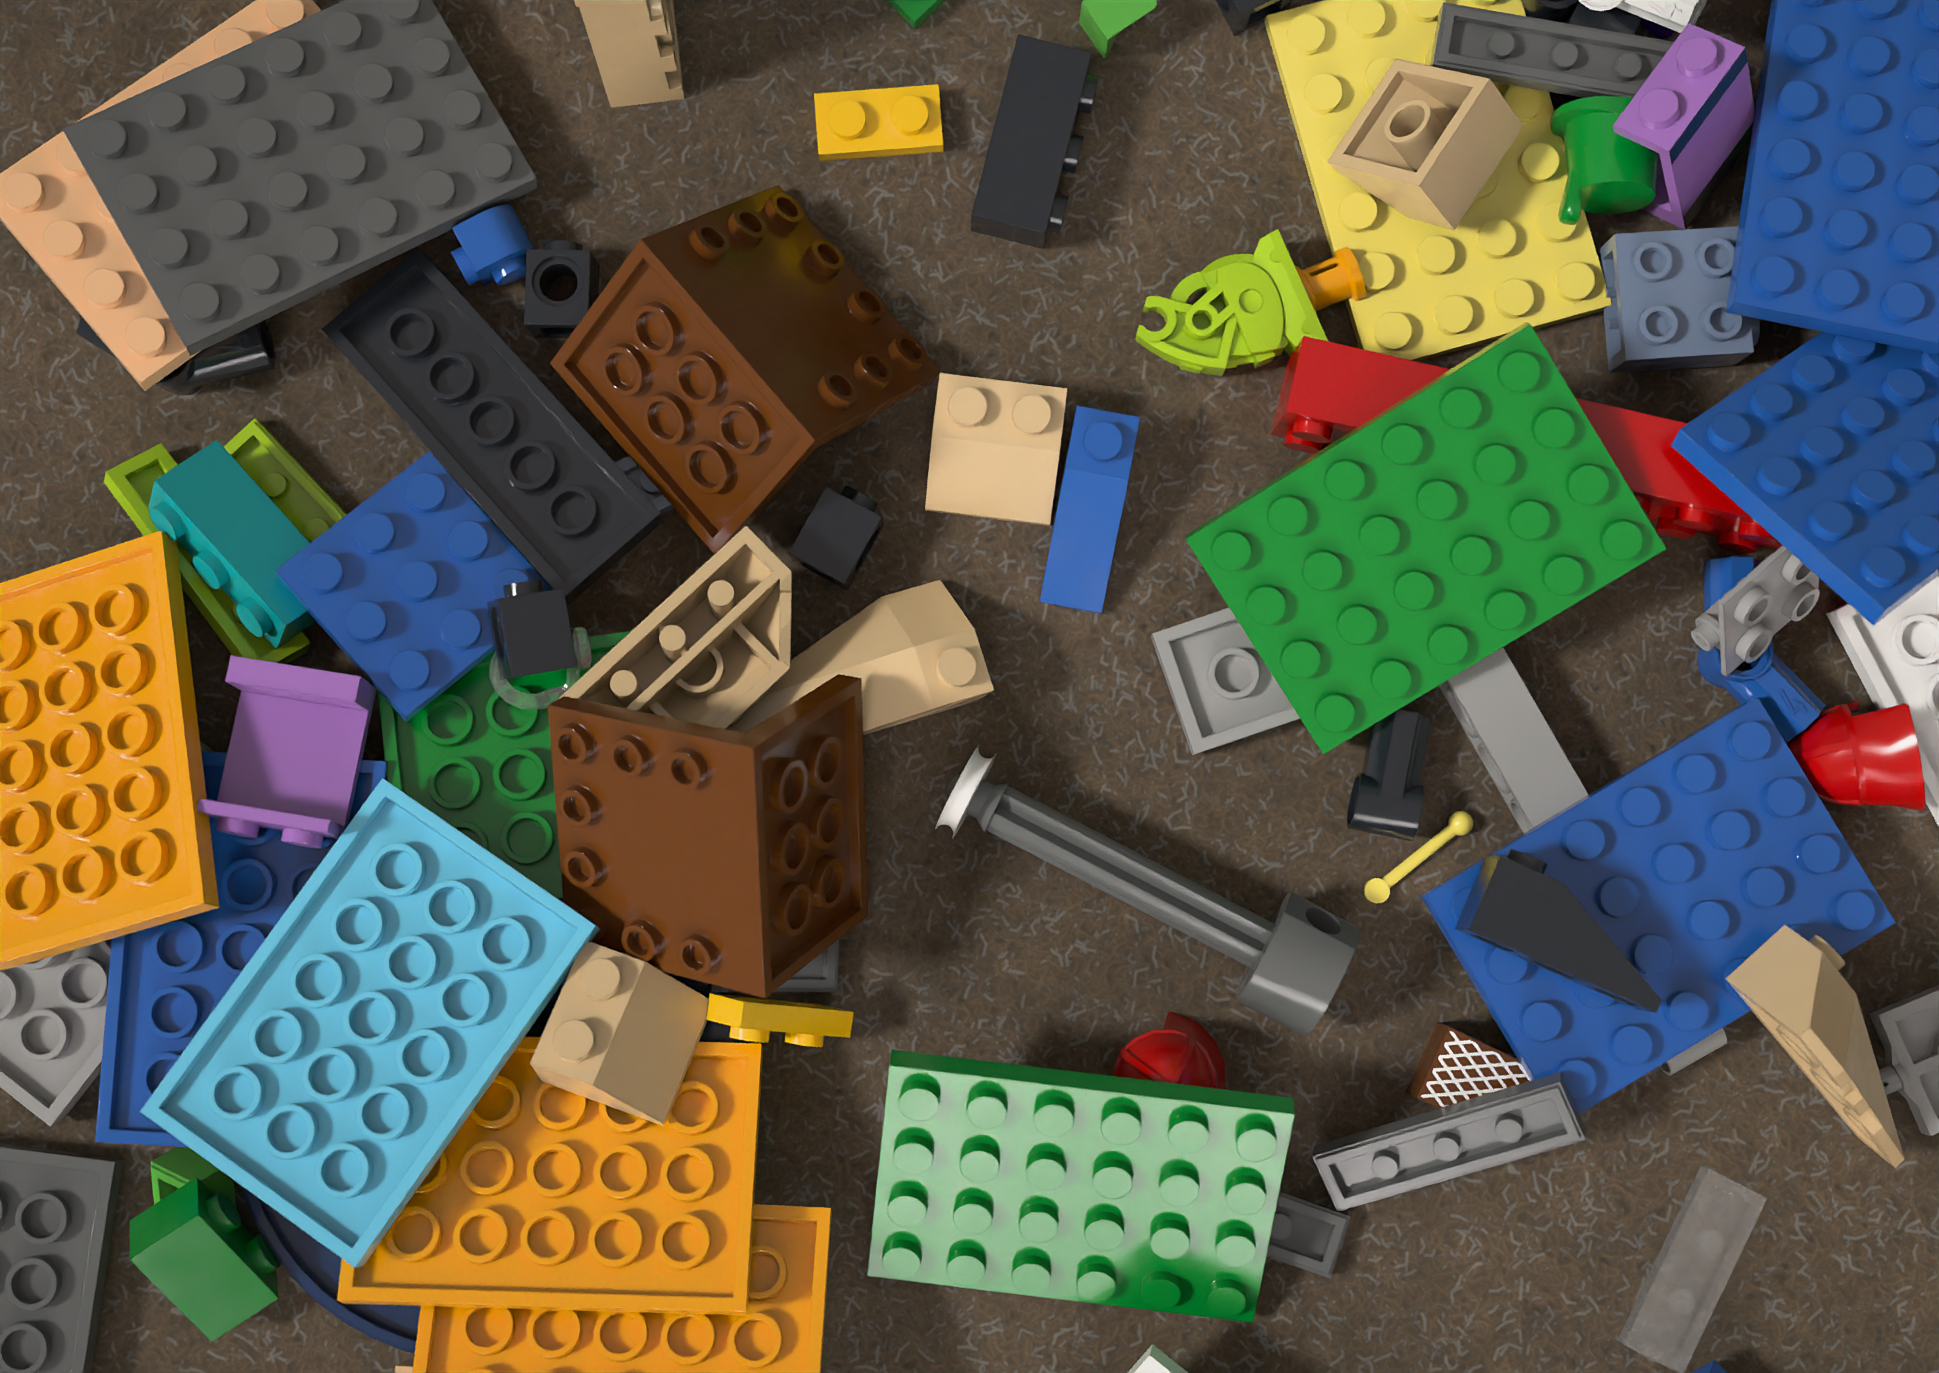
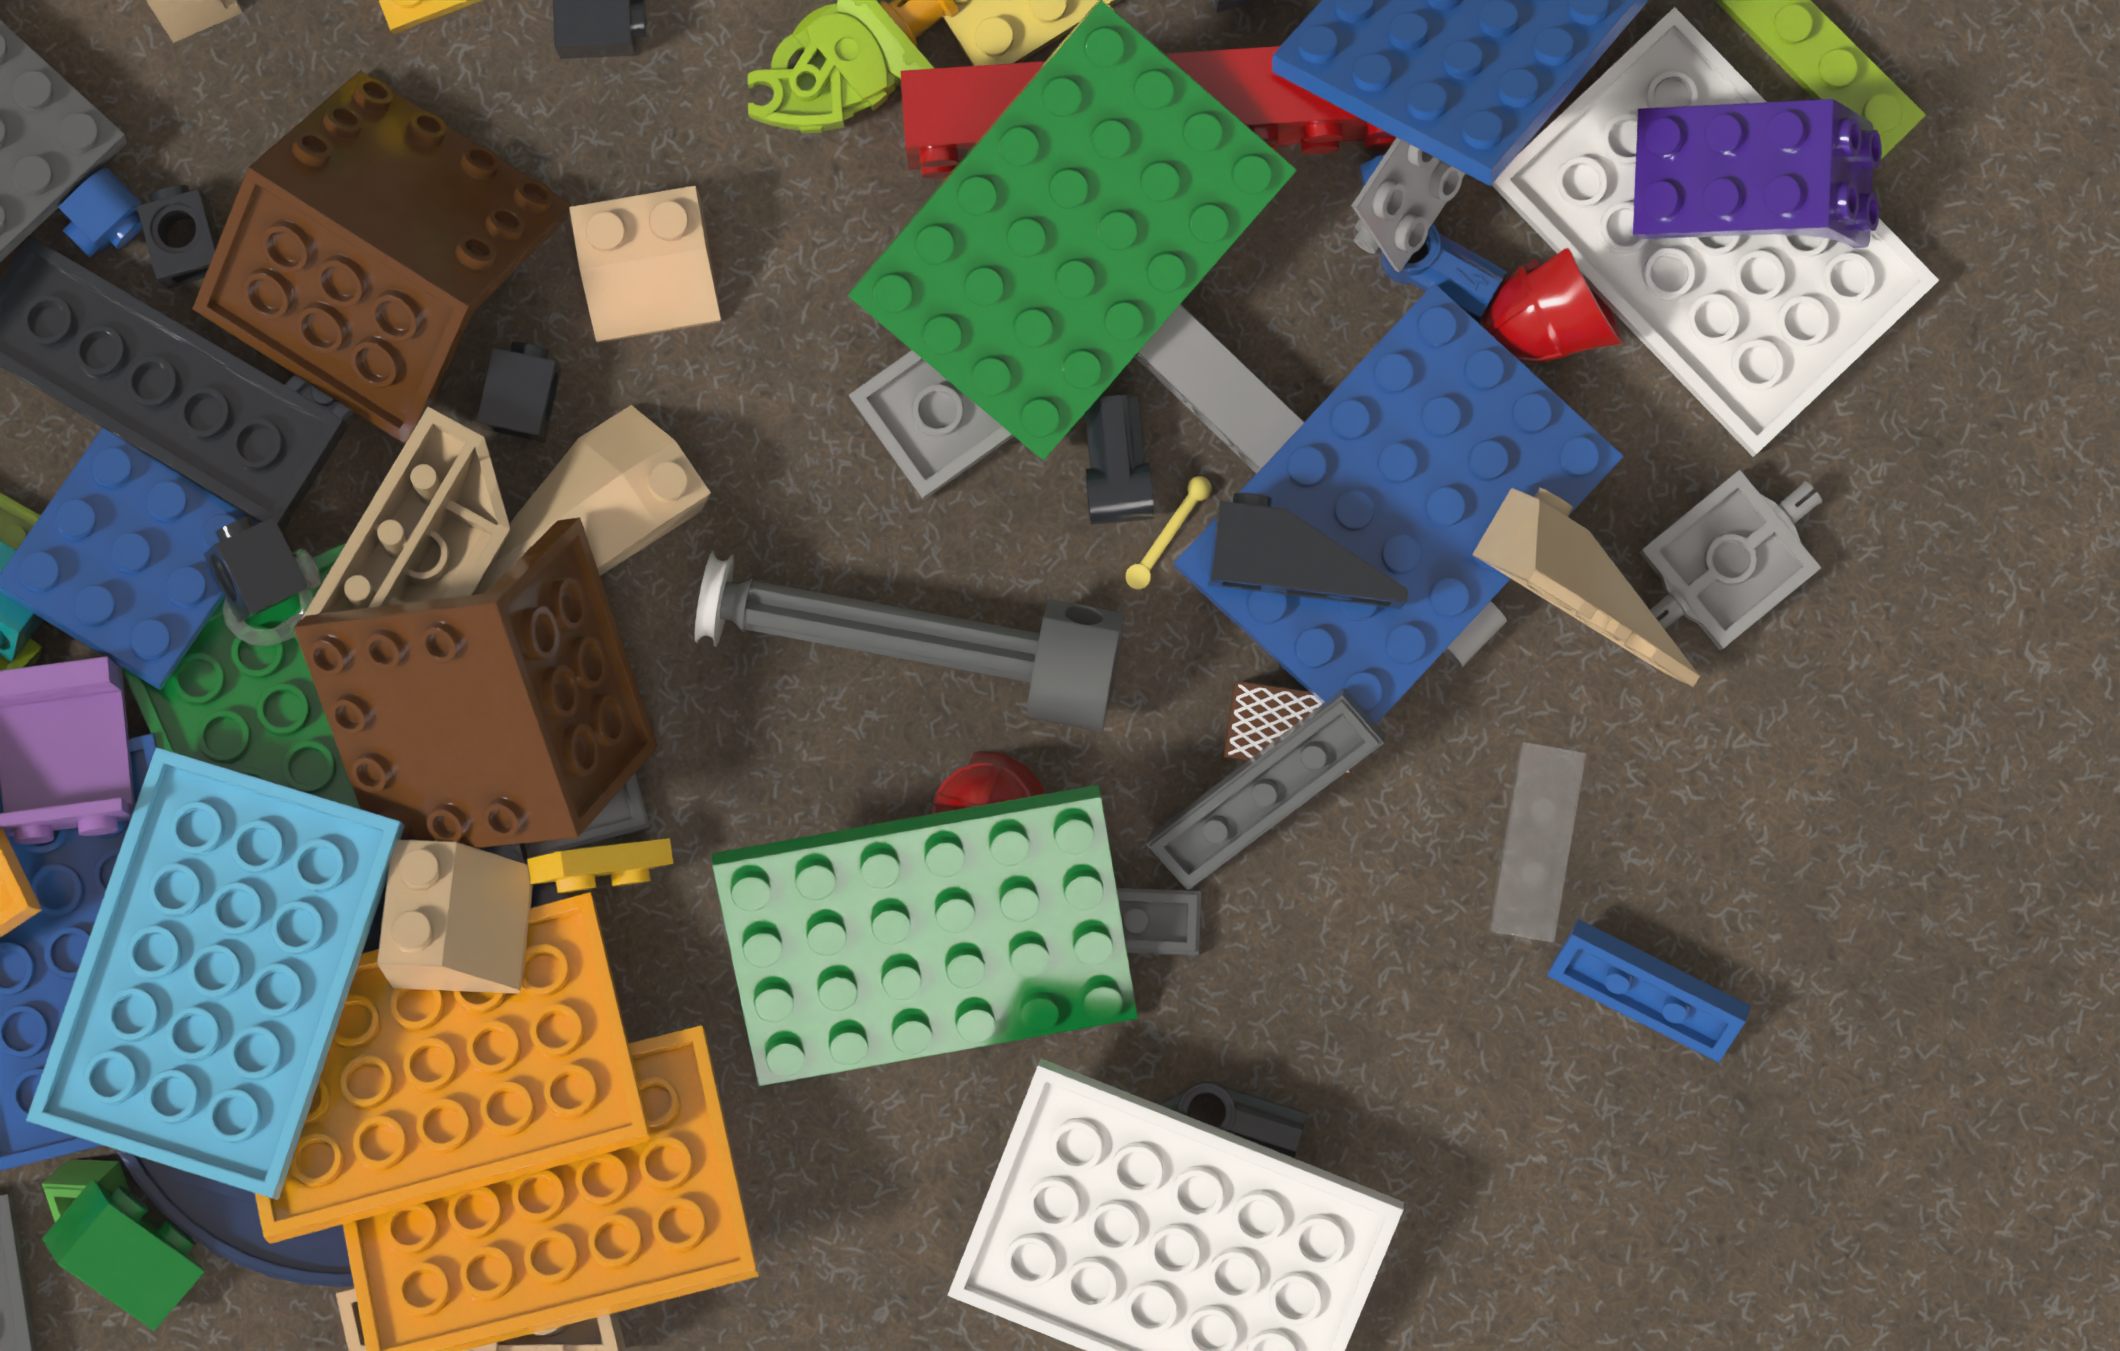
camera: 20 degrees left, 0 degrees up
(1089, 509) = (753, 294): blue slope -> none

